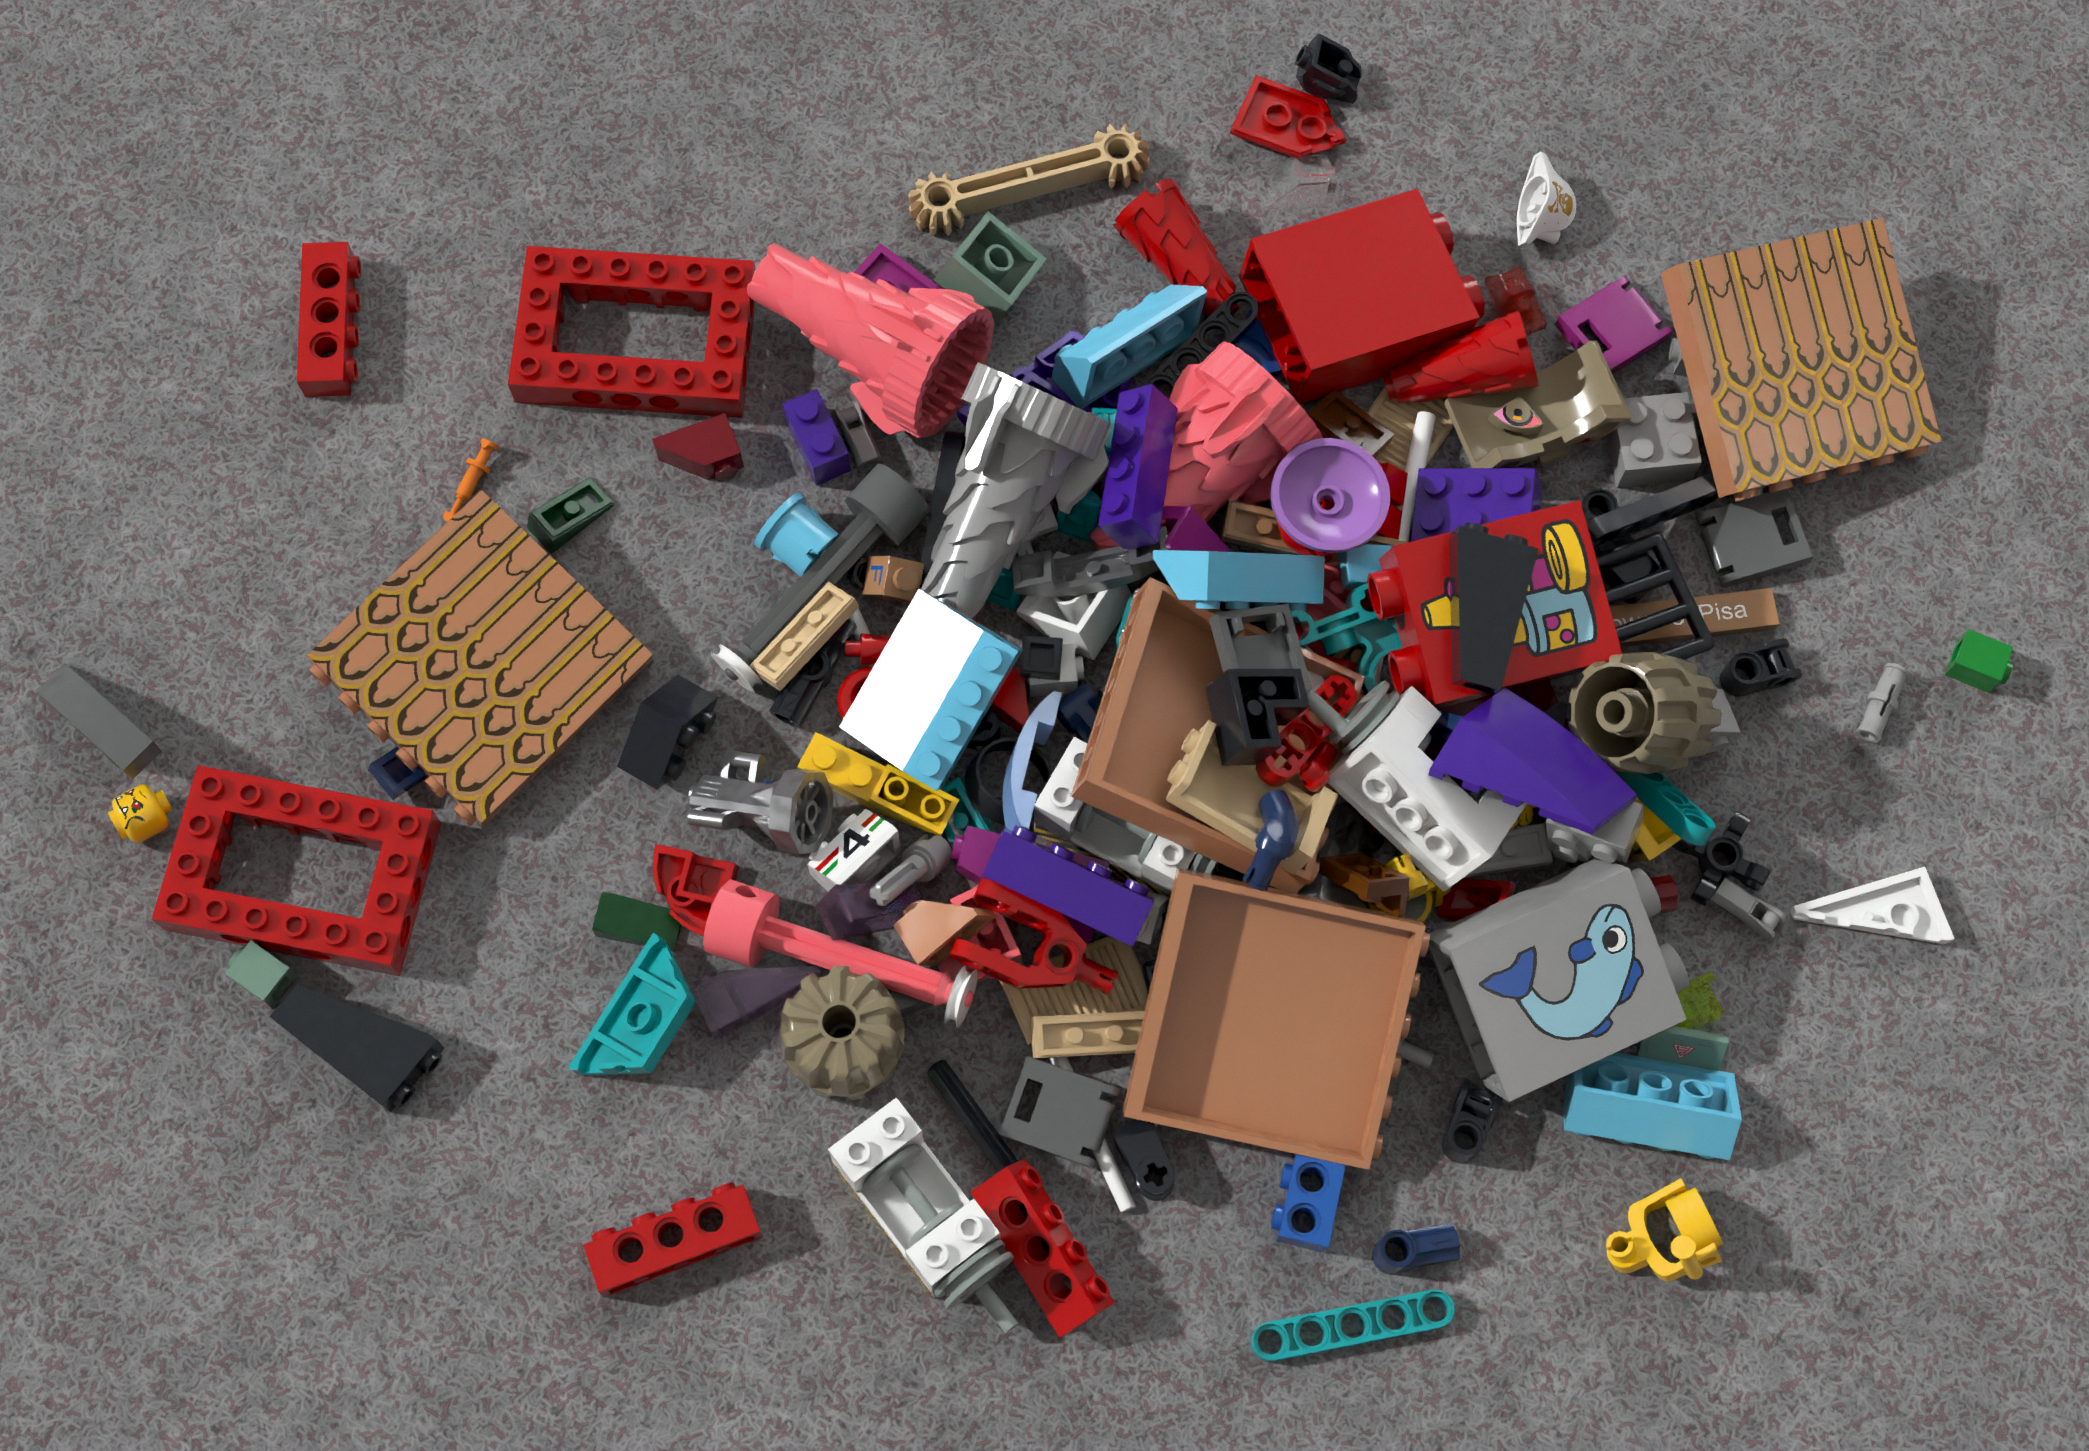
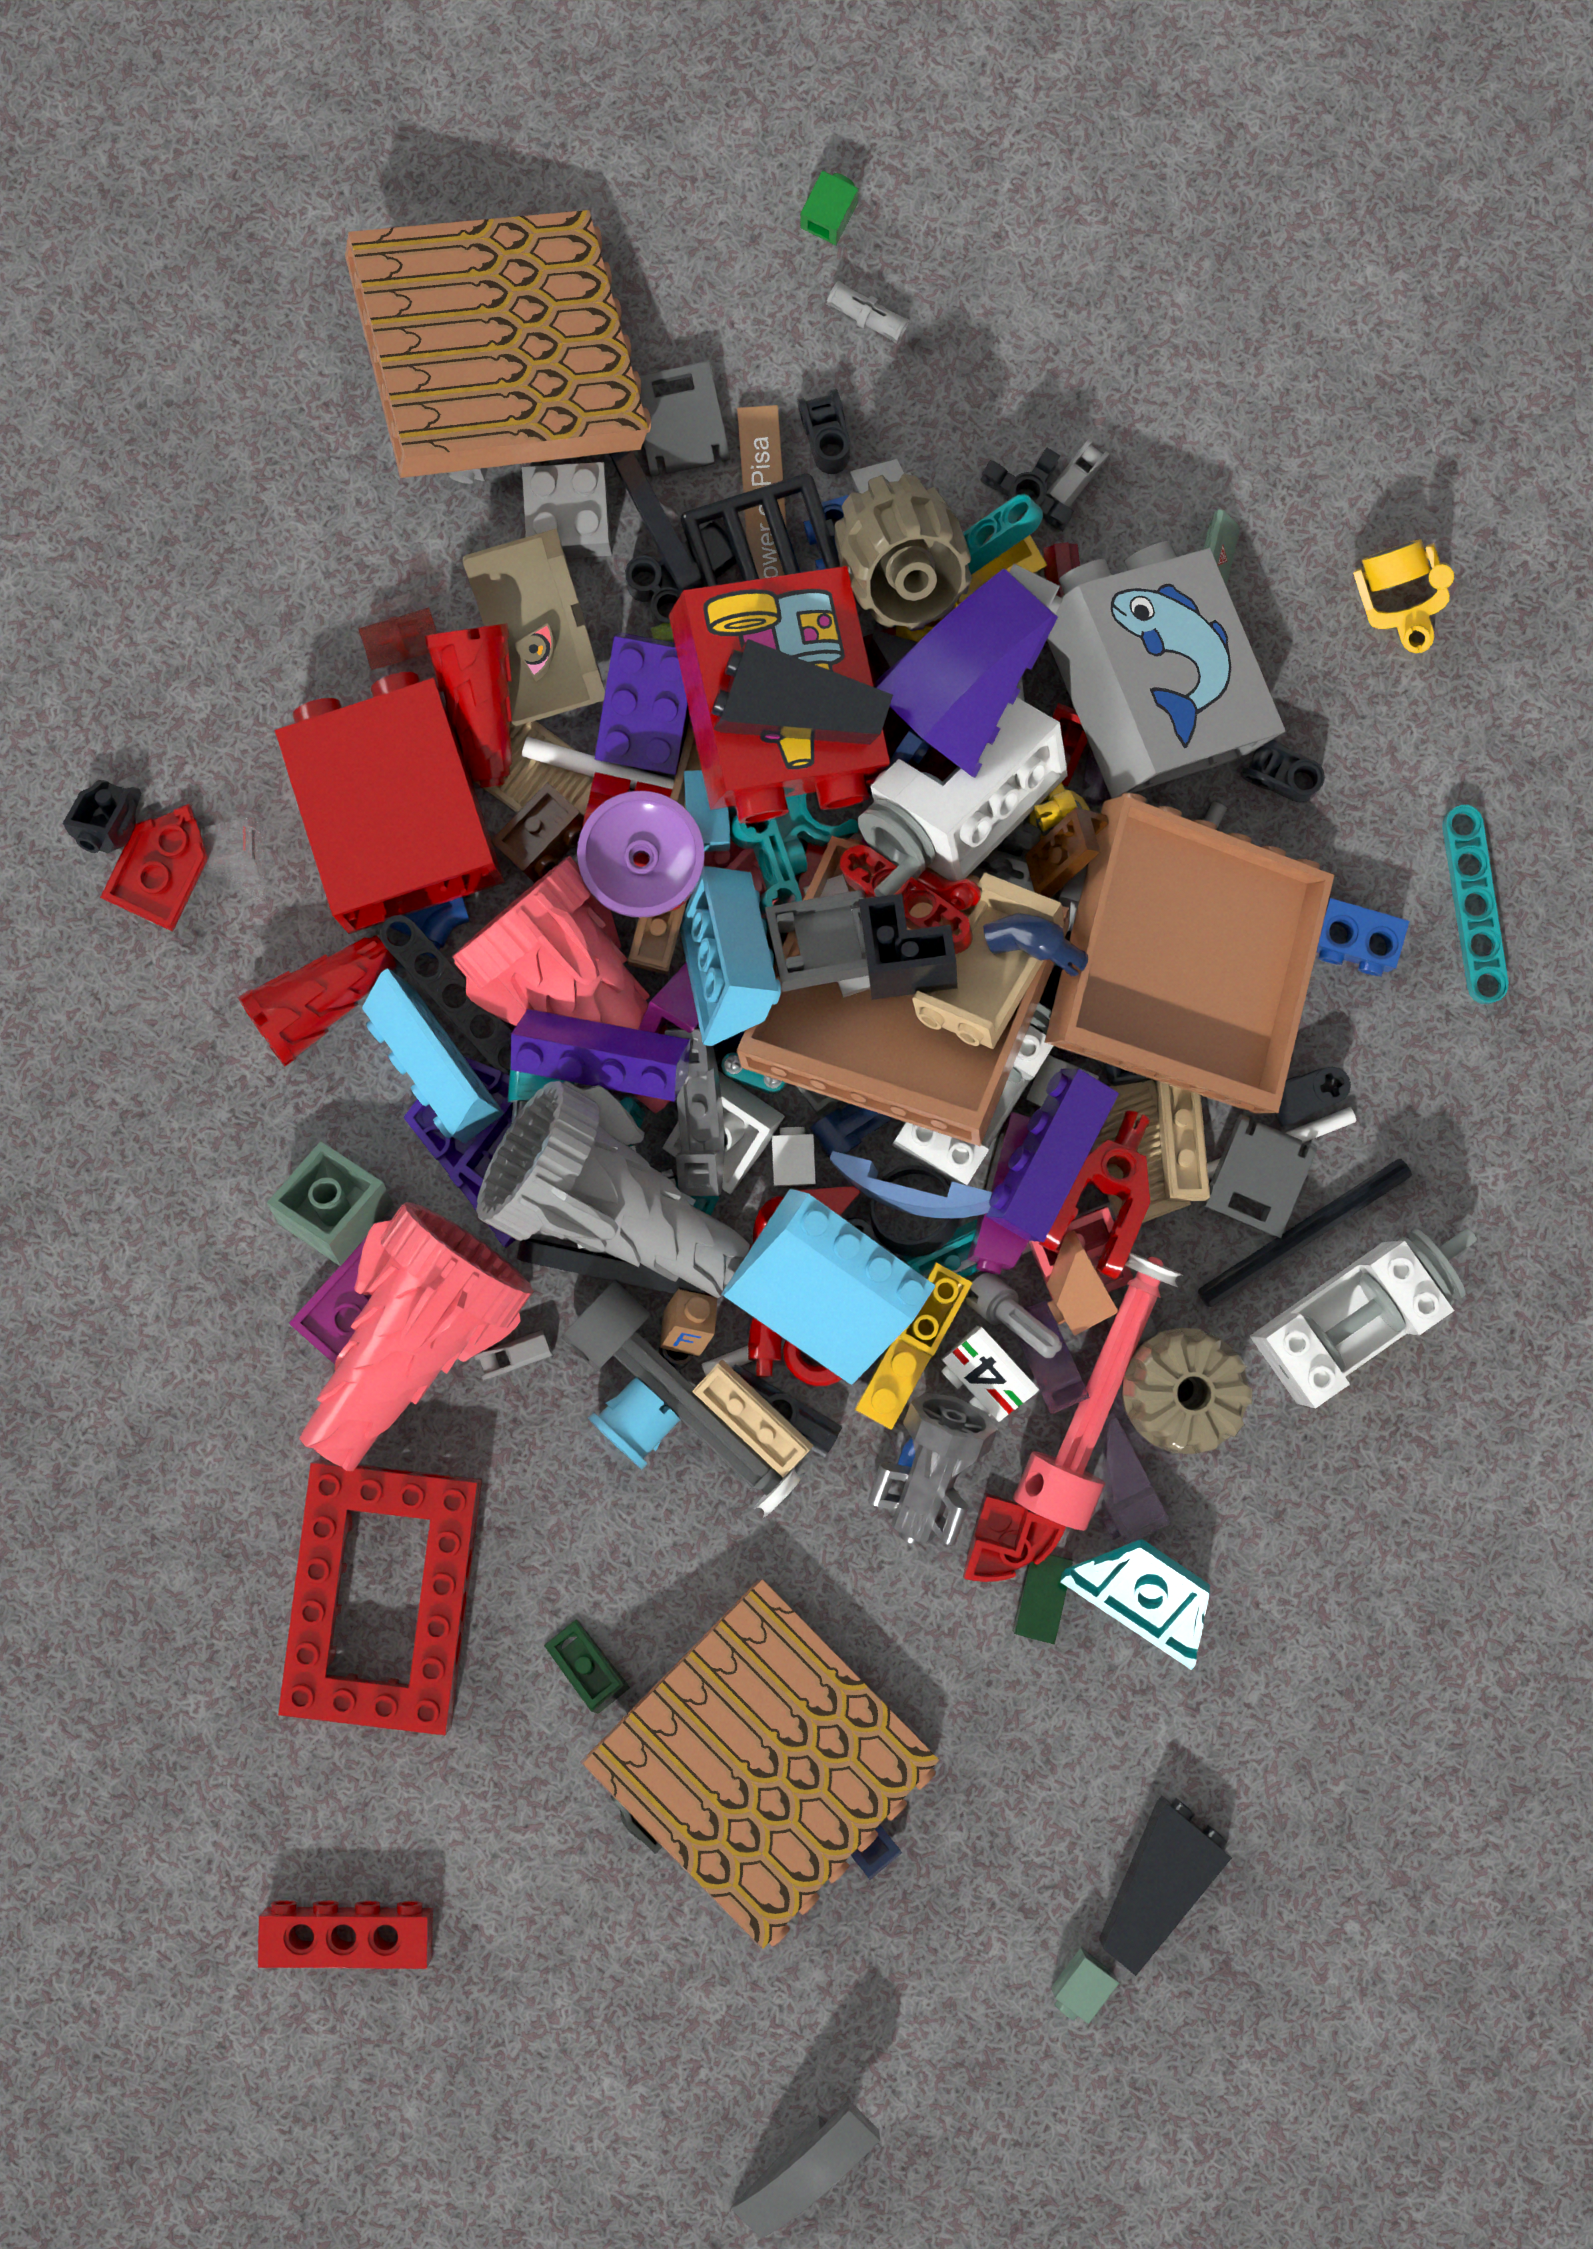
camera: 85 degrees left, 15 degrees up
(140, 813) = (908, 2119): yellow head -> none
(371, 943) = (895, 2033): red brick -> none
(472, 476) = (540, 1773): orange piece -> none
(607, 1245) = (1402, 1622): red brick -> none
(665, 729) = (846, 1563): black brick -> none
(702, 449) = (523, 1521): dark red slope -> none
(816, 437) = (517, 1399): dark purple brick -> none
(1029, 179) = (218, 1155): tan arm -> none
(1041, 657) = (788, 1169): black tile -> none
(1043, 1270) = (1397, 1200): red brick -> none
(1419, 1248) = (1405, 832): dark blue piece -> none
(1544, 204) = (282, 596): white hat -> none
(1619, 319) = (424, 529): magenta container -> none
(1654, 1105) = (1278, 582): medium azure slope -> none
(1699, 1002) = (1176, 531): clear neon green panel -> none
(1891, 906) = (1082, 330): white wing -> none

